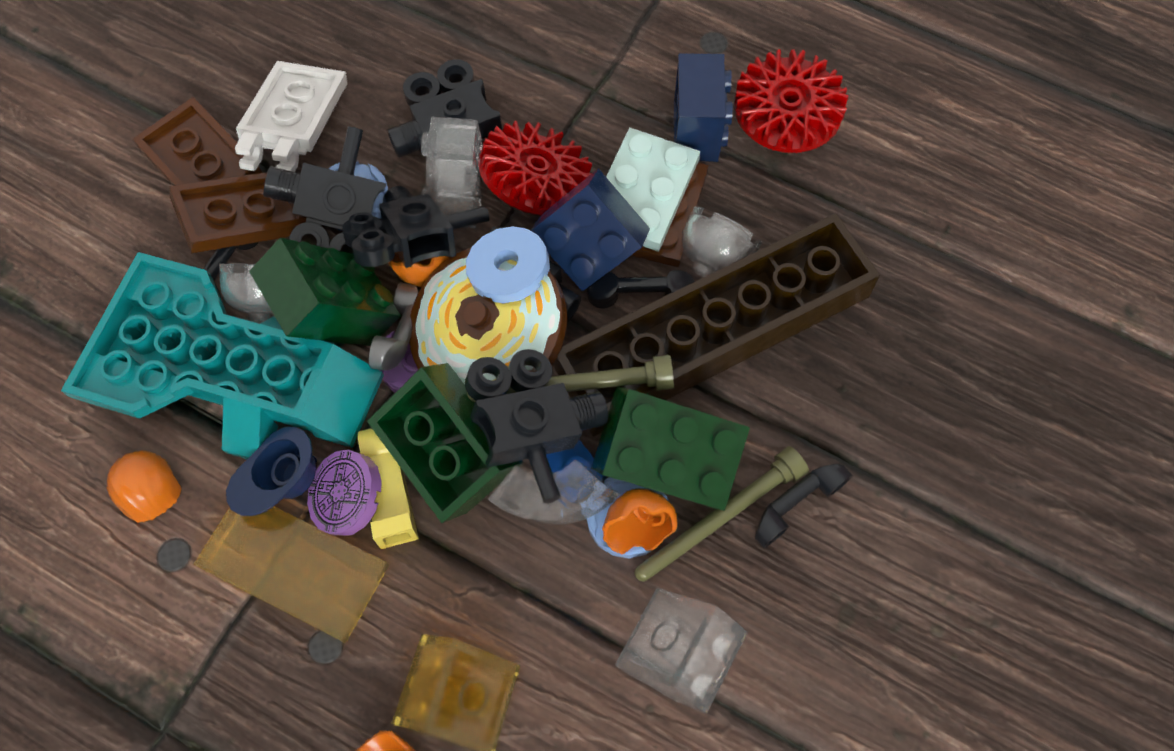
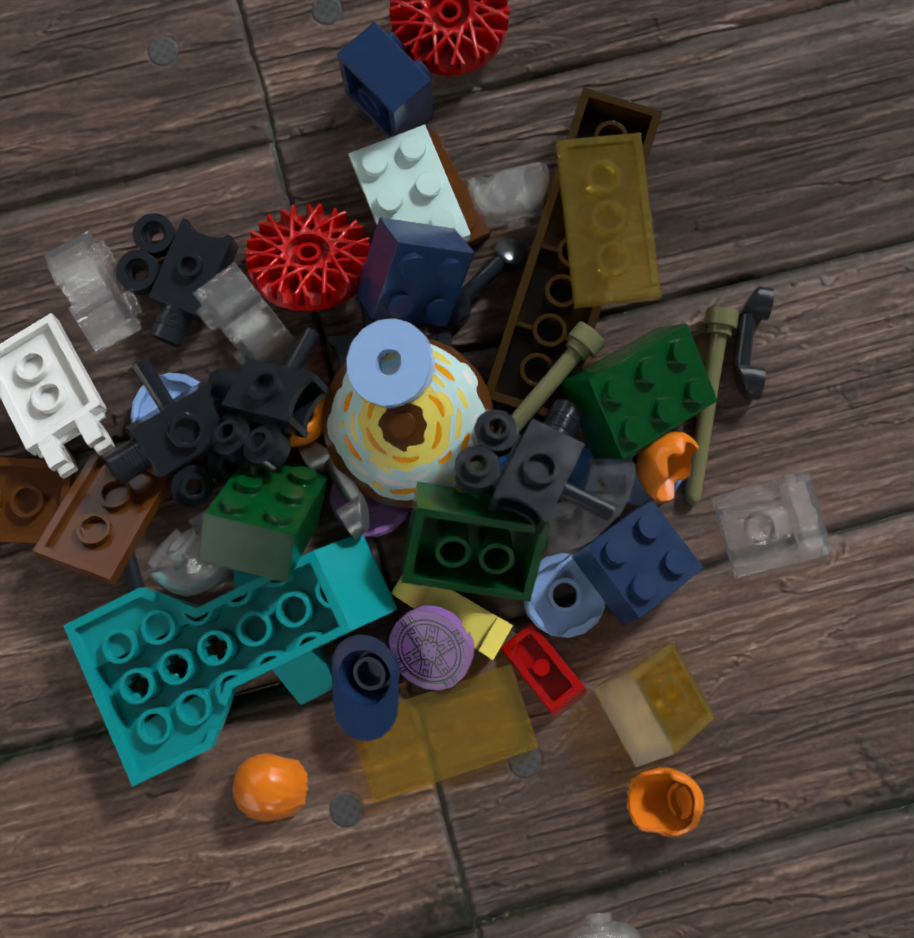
camera: 45 degrees left, 15 degrees up
(377, 88) = (96, 297): none -> clear brick
(404, 594) = (543, 670): none -> red slope
(481, 577) = (557, 620): none -> light blue tile
(548, 572) = (637, 562): none -> dark blue brick
(762, 311) = (607, 220): none -> clear yellow tile

